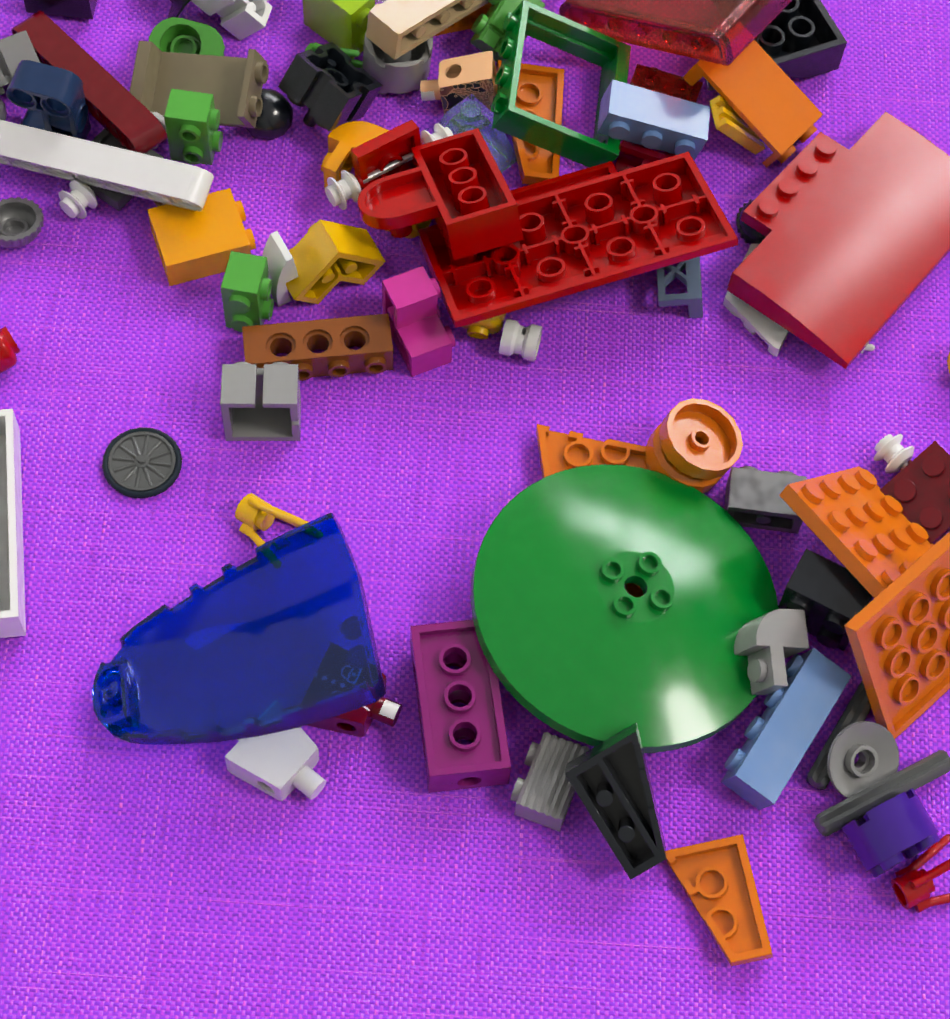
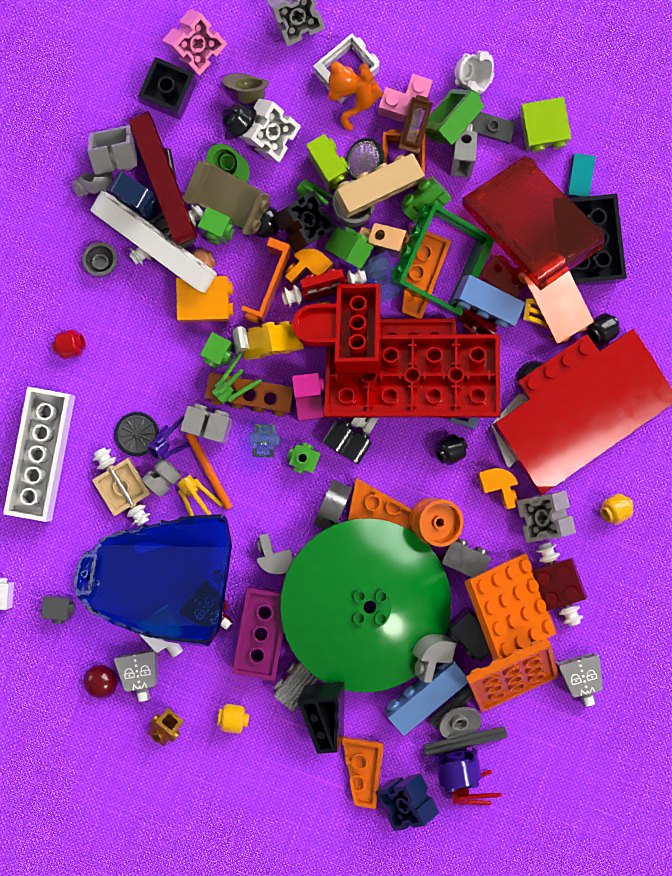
camera: 25 degrees right, 25 degrees up
(74, 771) = (58, 608): none -> dark grey brick
(138, 543) = (121, 486): none -> tan plate
(187, 884) = (100, 681): none -> dark red hair
(191, 449) = (159, 446): none -> dark purple plant
(208, 503) = (161, 477): none -> light grey wheel
(254, 840) = (138, 672): none -> light grey torso
(276, 337) = (224, 390): none -> bright green plant
(276, 473) = (209, 471): none -> orange bar
(301, 142) = (283, 251): none -> orange panel
(333, 920) = (165, 727): none -> pearl gold brick
(370, 415) = (264, 440): none -> clear light blue brick
(414, 97) = (349, 246): none -> bright green brick
(439, 416) = (312, 458): none -> bright green brick
(439, 590) = (273, 562): none -> light grey brick
(454, 871) = (232, 718): none -> yellow head
(502, 378) = (347, 442): none -> black brick
(512, 470) = (332, 505): none -> flat silver brick
(675, 345) = (451, 449): none -> black head
(770, 369) = (499, 480): none -> light orange brick
(825, 914) = (407, 802): none -> dark blue brick
(843, 123) = (603, 329): none -> black head
(868, 390) = (546, 516): none -> light grey brick

